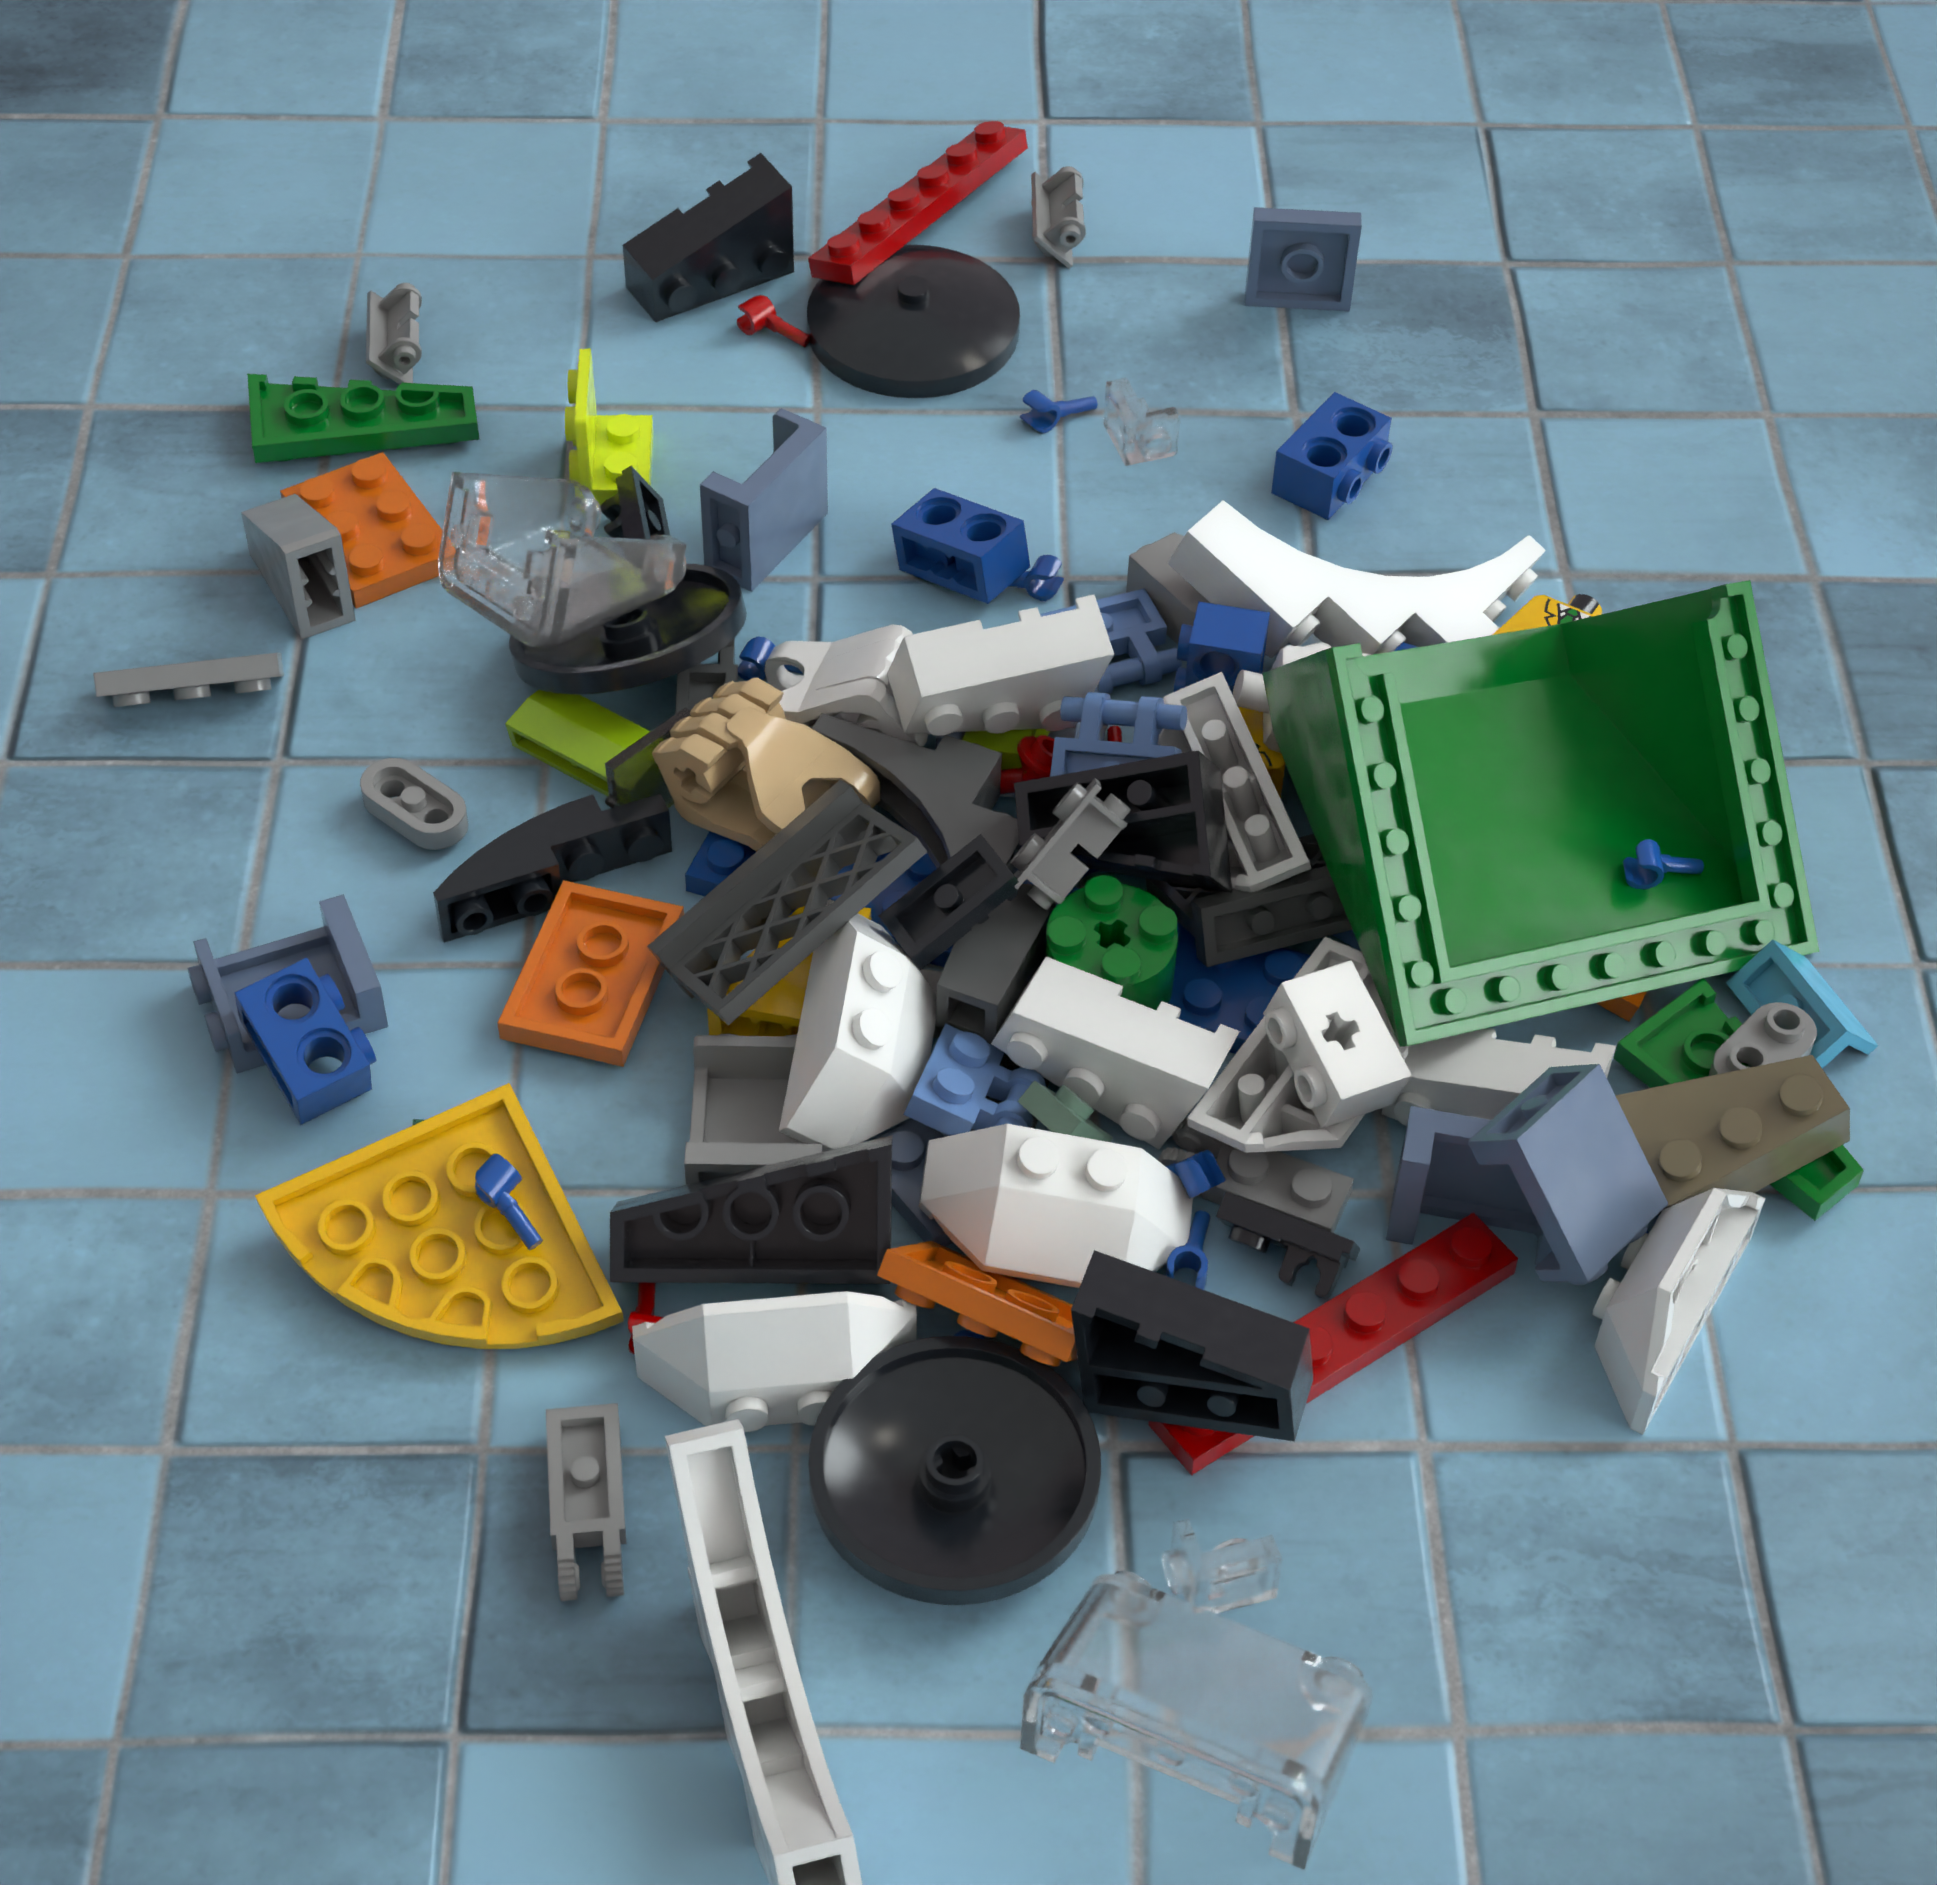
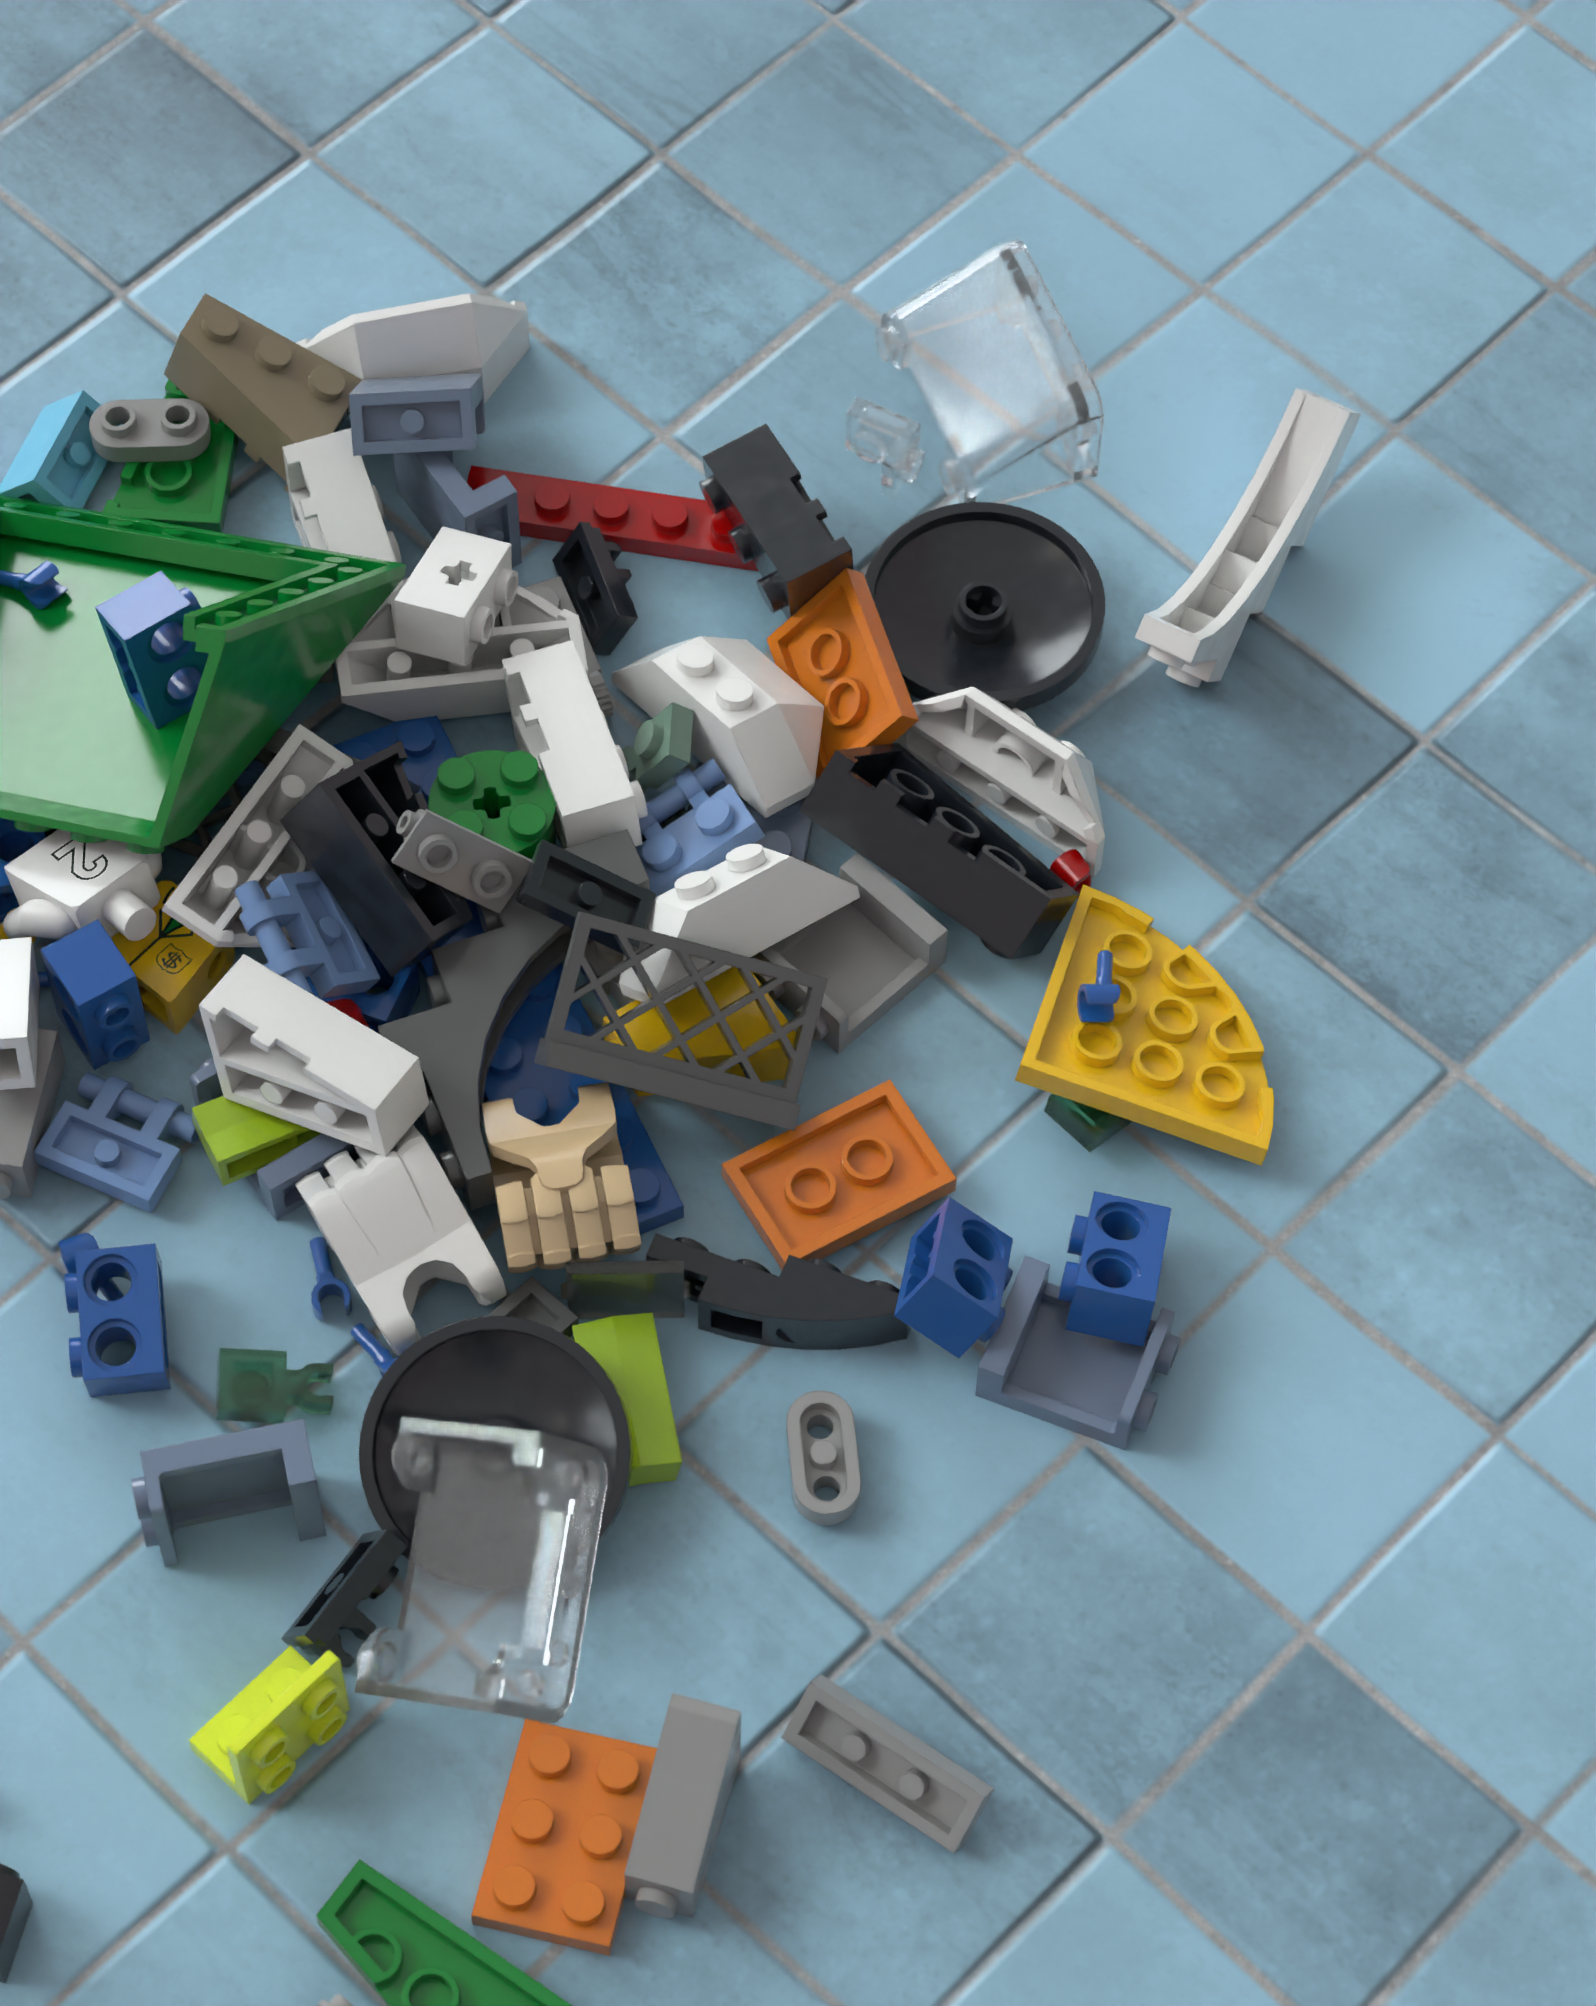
camera: 135 degrees left, 10 degrees up
(429, 918) = (955, 1278): none -> blue brick
(586, 1492) = (1215, 799): light grey hinge -> none
(833, 586) = (258, 1386): none -> clear green plate
(1192, 1254) = (672, 634): blue hand -> none
(1198, 1173) = (613, 673): blue hand -> none
(1460, 786) = (149, 647): none -> blue brick

